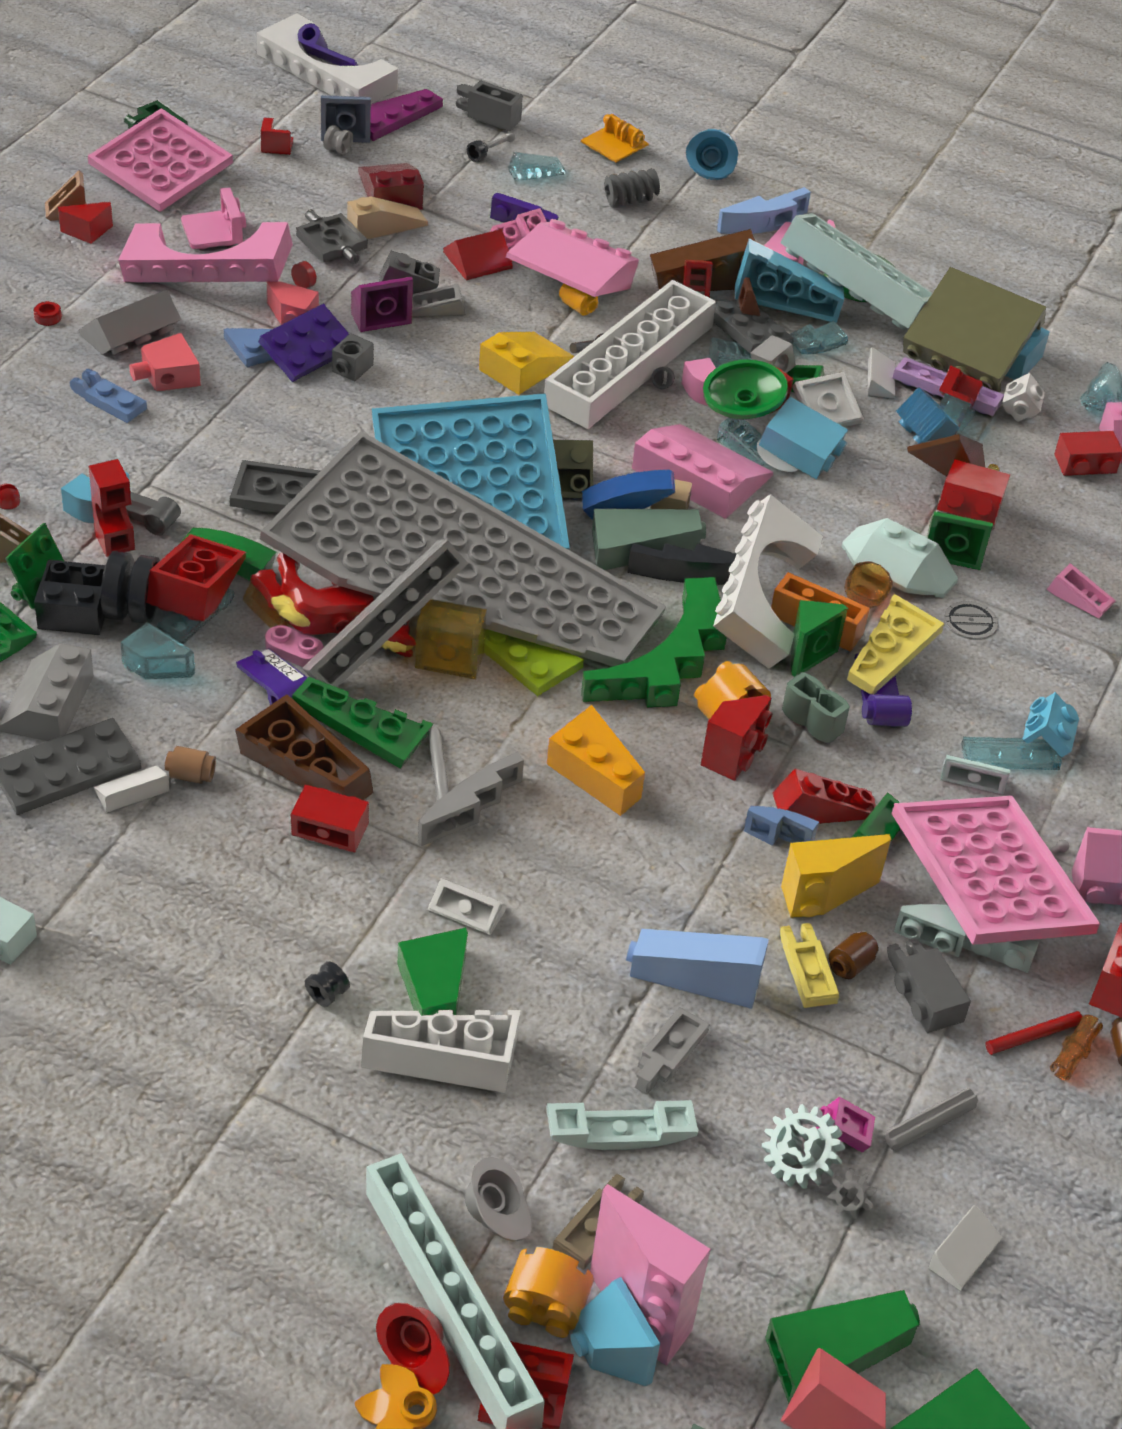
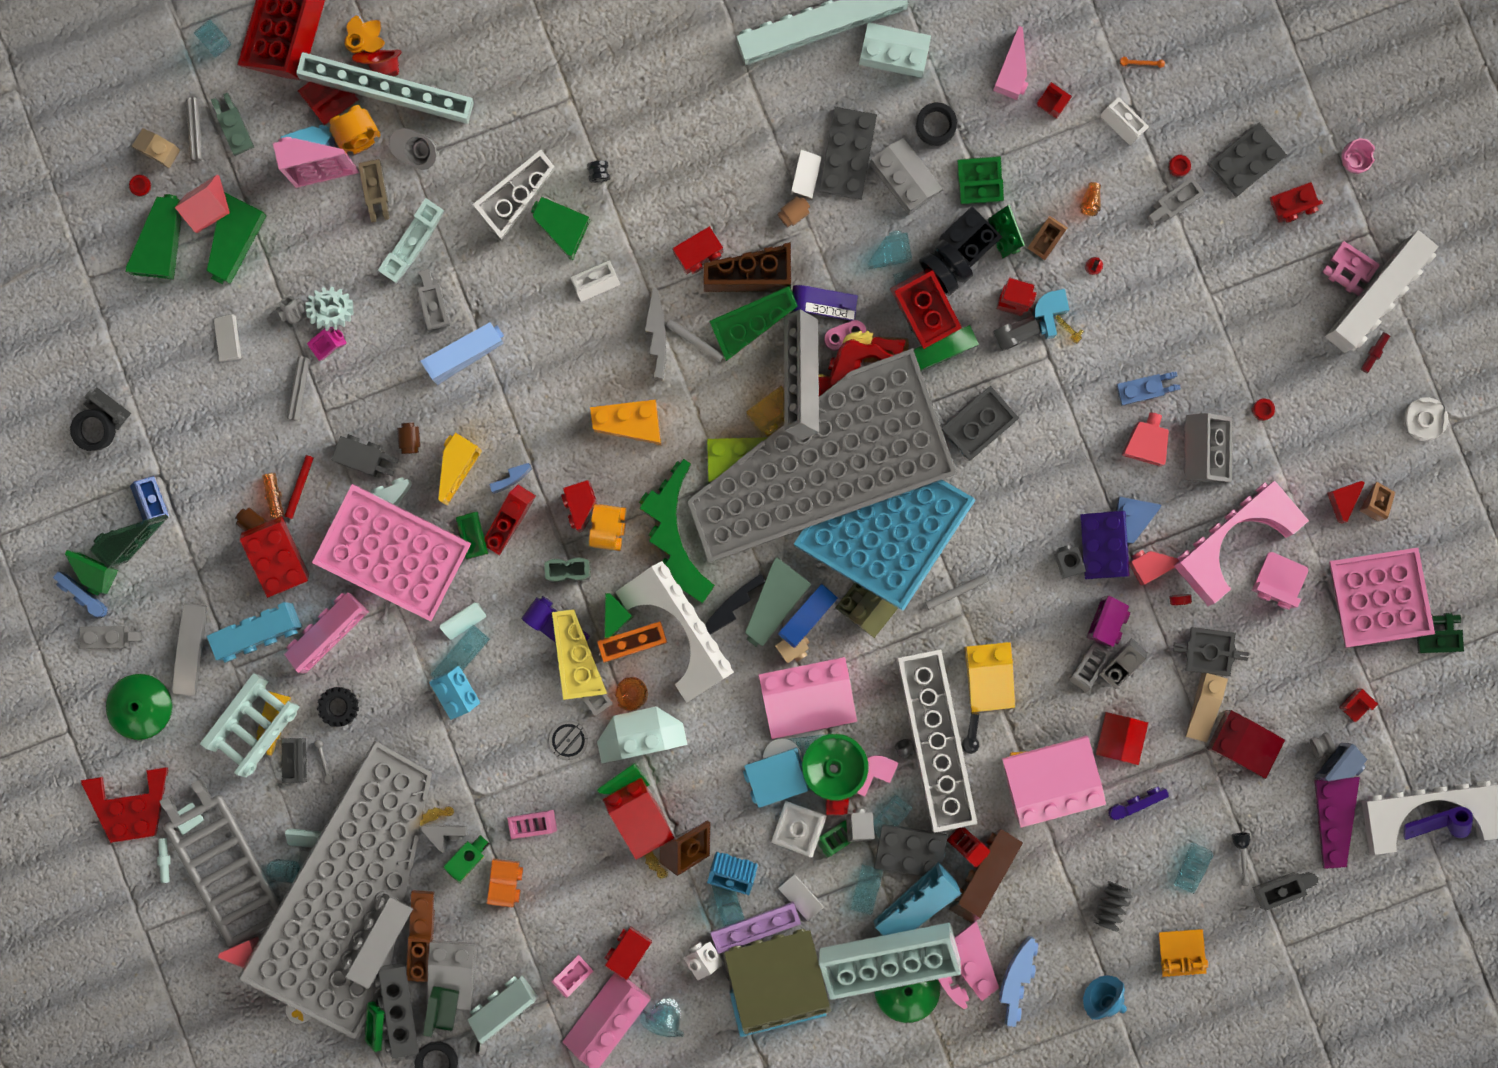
camera: 135 degrees right, 40 degrees up
(520, 227) = (1121, 784): bright pink slope -> none
(747, 299) = (923, 862): copper slope -> none
(809, 967) = (420, 411): light yellow hinge -> none
(960, 385) = (737, 919): red panel -> none

